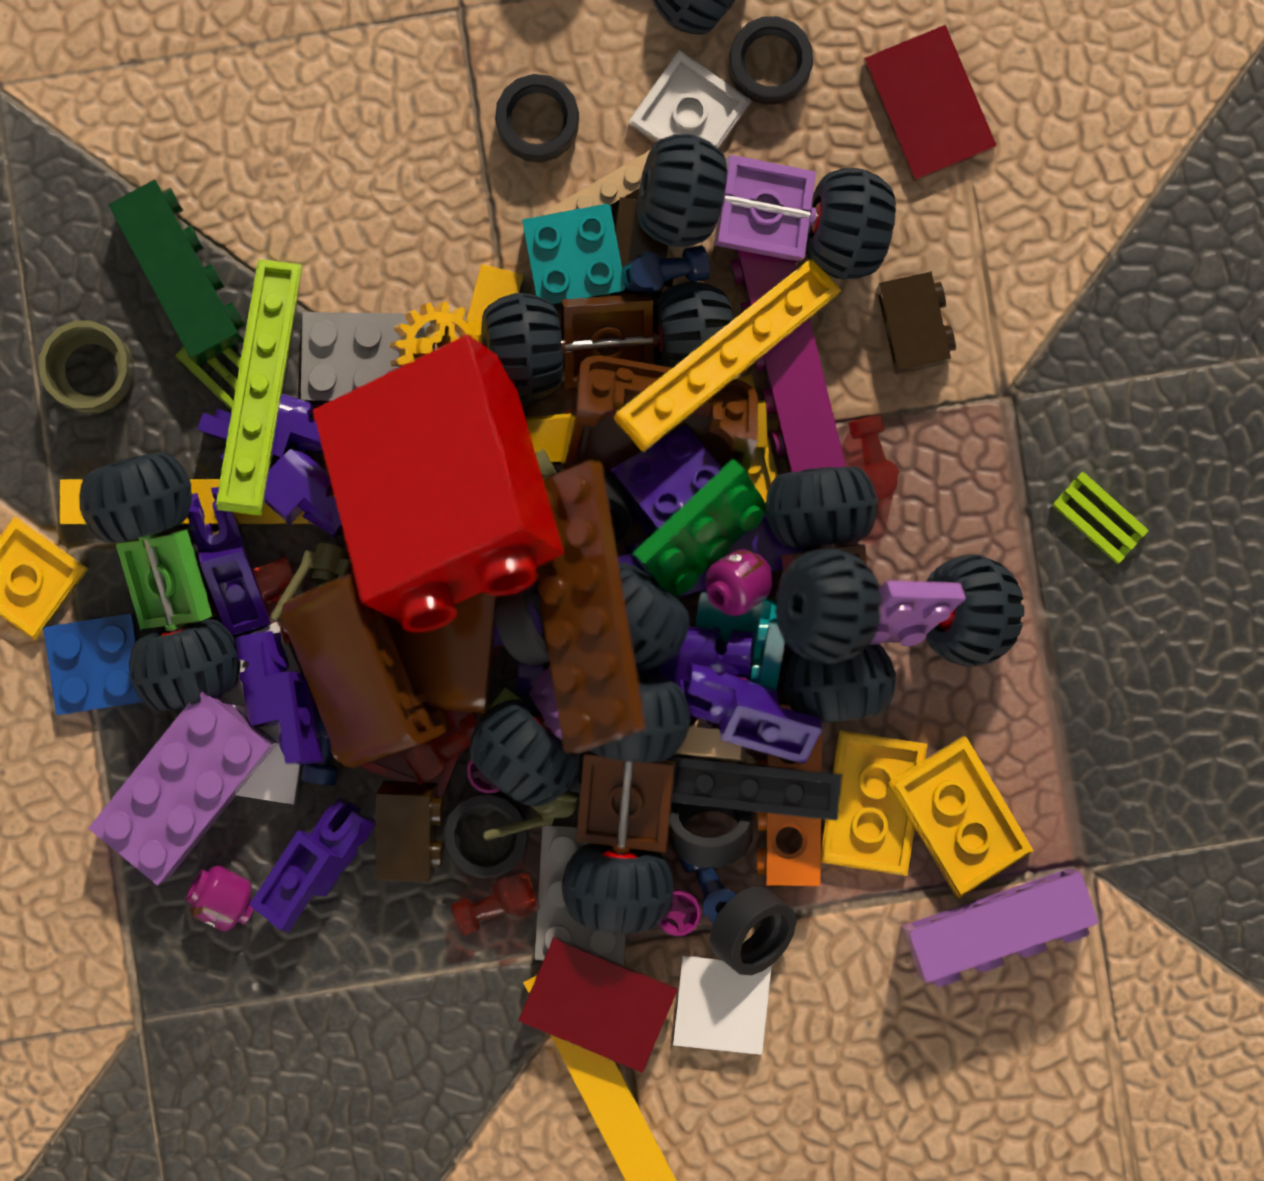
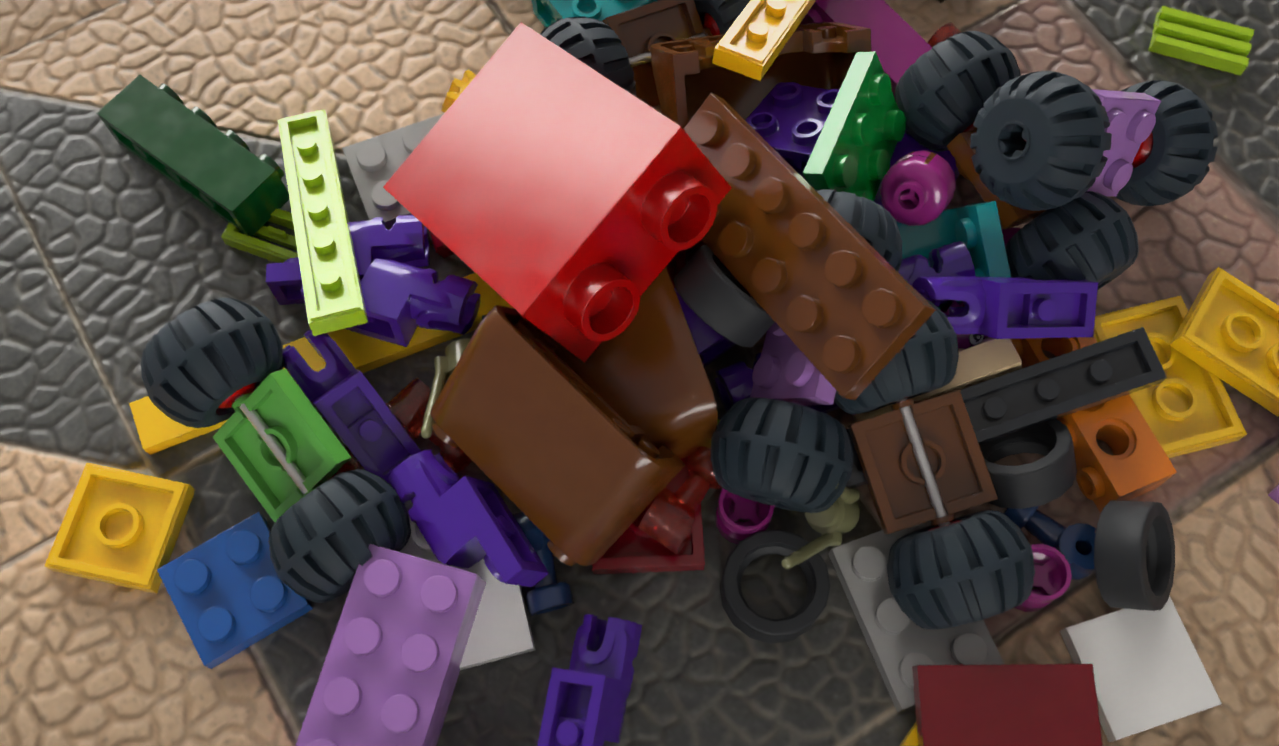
camera: 25 degrees left, 20 degrees down
(63, 344) = (105, 250): olive piece -> none
(408, 831) = (685, 617): dark brown brick -> none
(510, 896) = (838, 644): clear red leg -> none

